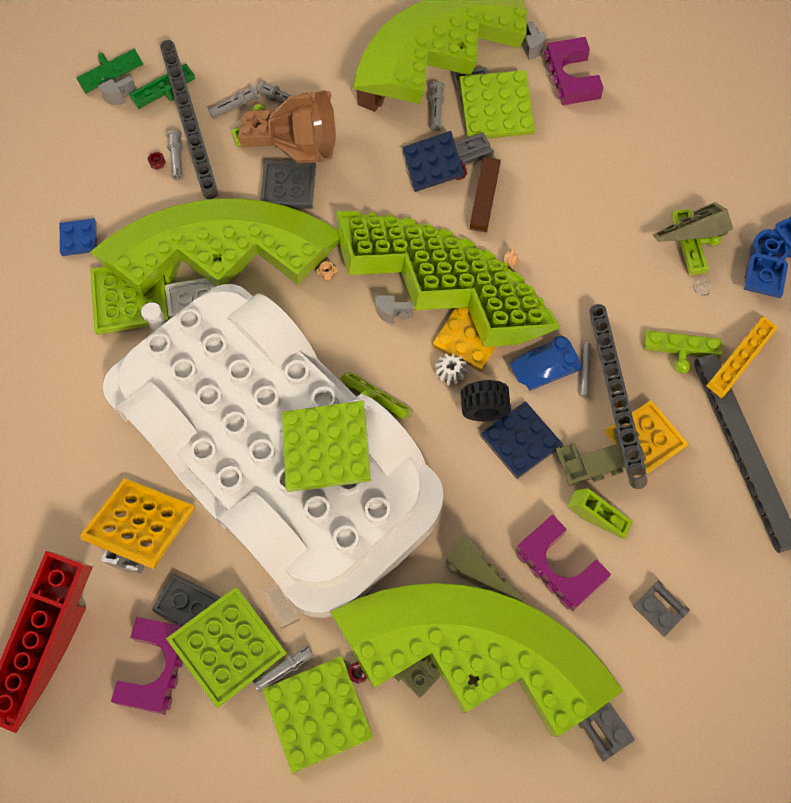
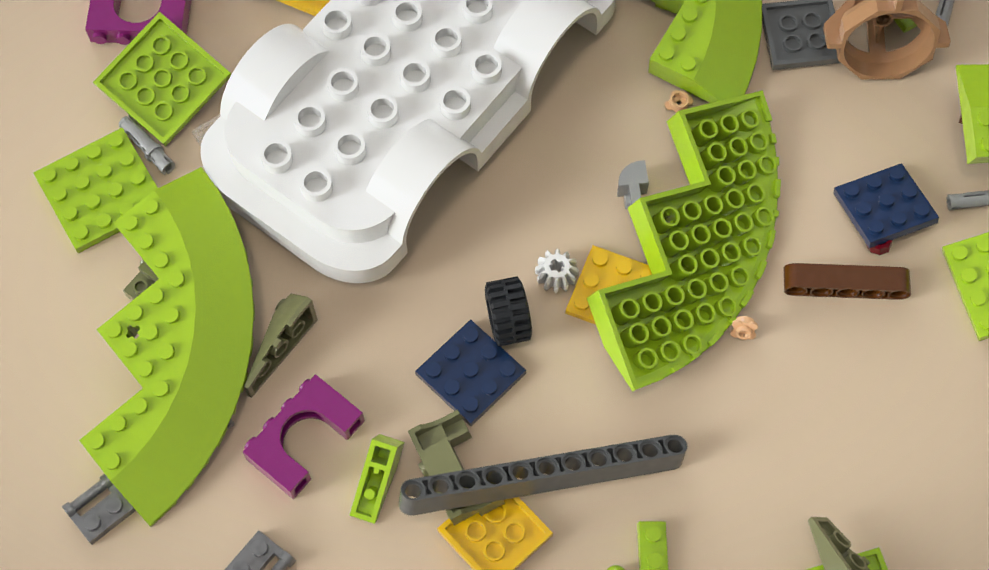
camera: 80 degrees right, 0 degrees up
(182, 600) = (217, 30): dark grey tile -> none
(325, 446) = (385, 109): lime plate -> none
(397, 408) = (503, 185): lime plate -> none
(474, 148) = (922, 256): flat silver plate -> none
(546, 363) = (587, 389): blue slope -> none
(585, 370) = (576, 445): light grey bar -> none

